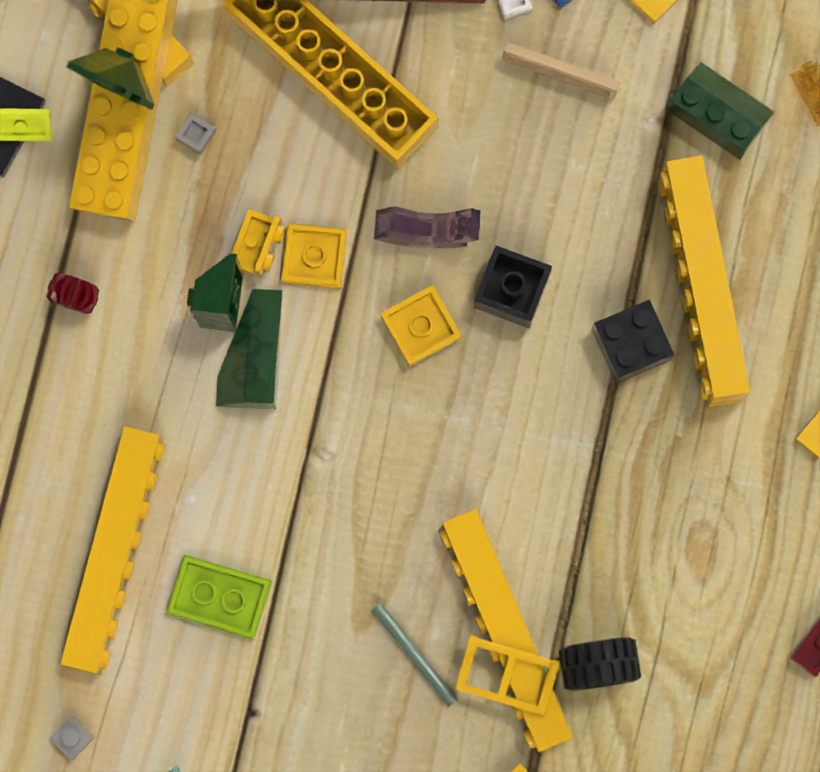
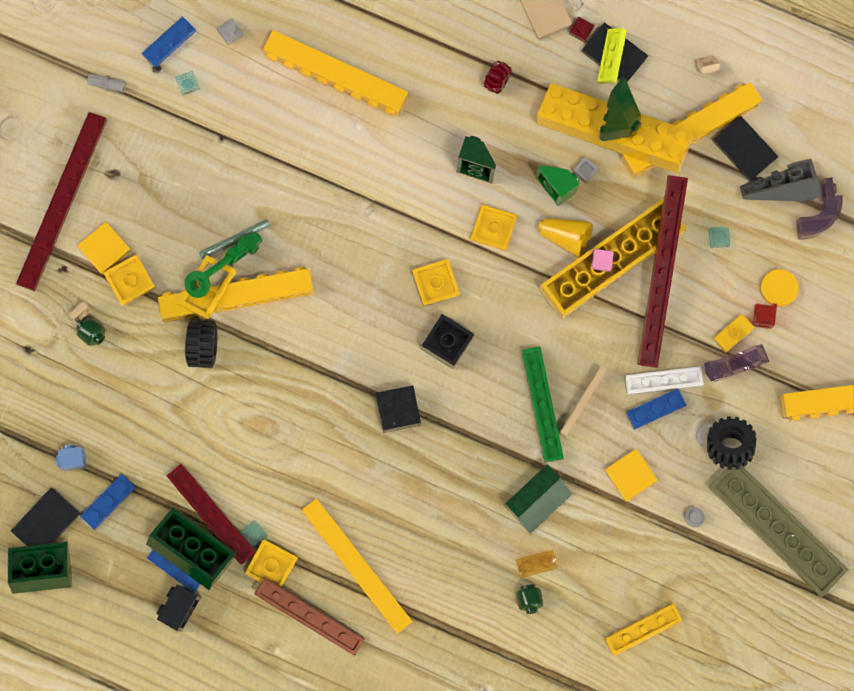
camera: 90 degrees right, 0 degrees up
(219, 597) = (294, 131): lime tile -> none
(230, 166) = (558, 183): none -> green slope
(252, 361) = (435, 178): clear green wedge -> none
(257, 241) = (508, 193): yellow bracket -> none
(305, 140) = (567, 234): none -> yellow cone
(341, 74) = (602, 260): none -> bright pink tile
(421, 629) = (245, 245): none -> green piece
(427, 230) = (496, 296): arch -> none
(576, 129) = (542, 404): none -> green plate
(704, 282) = (426, 460): yellow brick -> none

